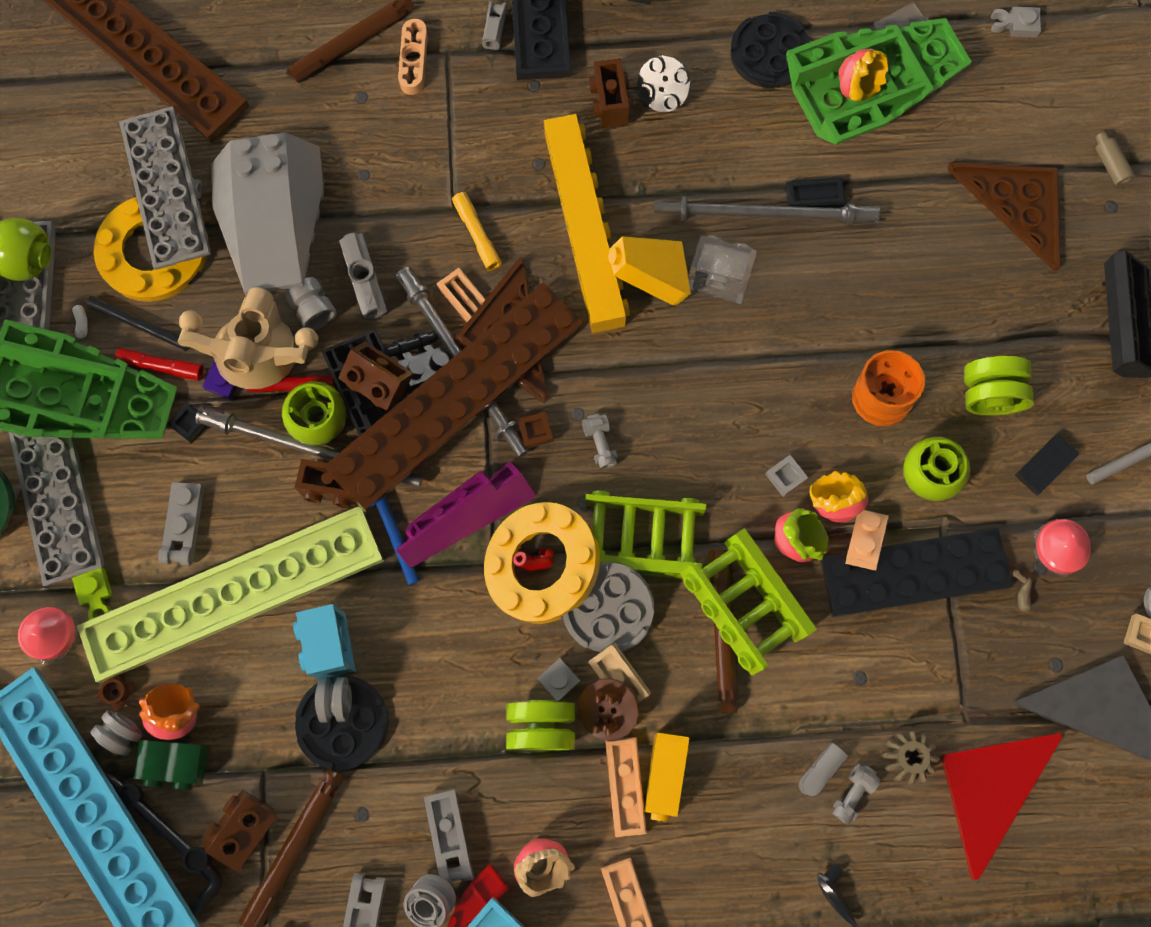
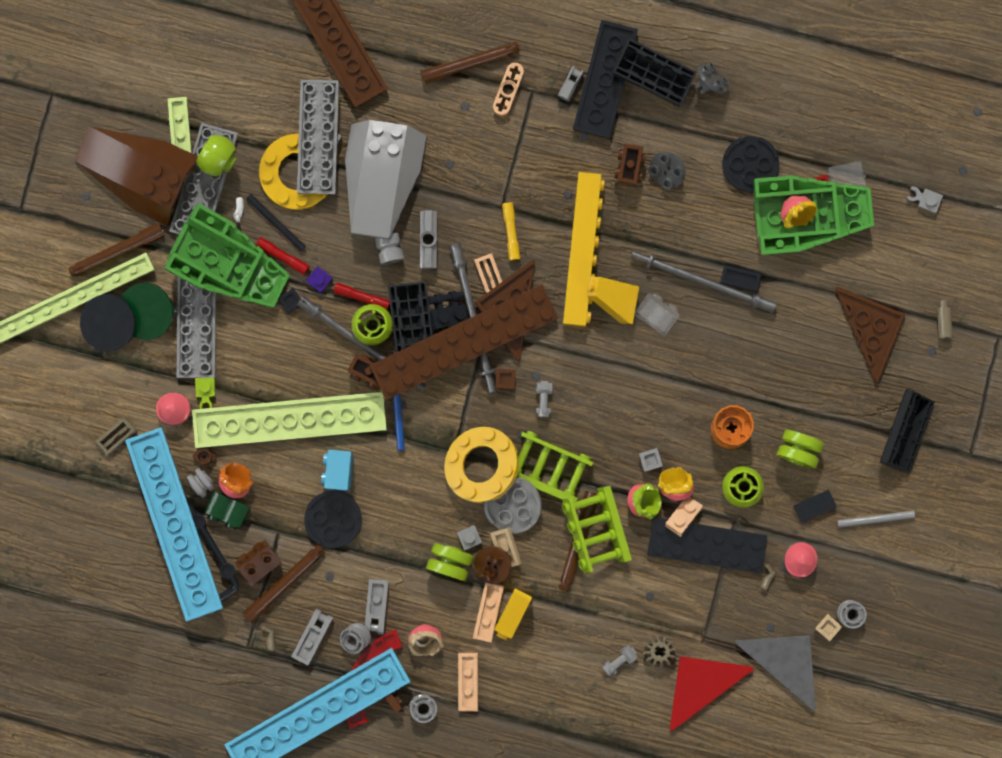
camera: 25 degrees right, 10 degrees up
(181, 523) = (270, 365): light grey plate -> none
(237, 356) = (337, 278): tan piece -> none
(333, 699) = (333, 506): light grey wheel -> none
(375, 376) = (417, 317): reddish brown brick -> none
(465, 512) = (445, 416): magenta wedge -> none
(532, 563) = (476, 462): red arm -> none
(822, 770) = (605, 641): light grey bar -> none
(833, 895) = (584, 705): black bar -> none

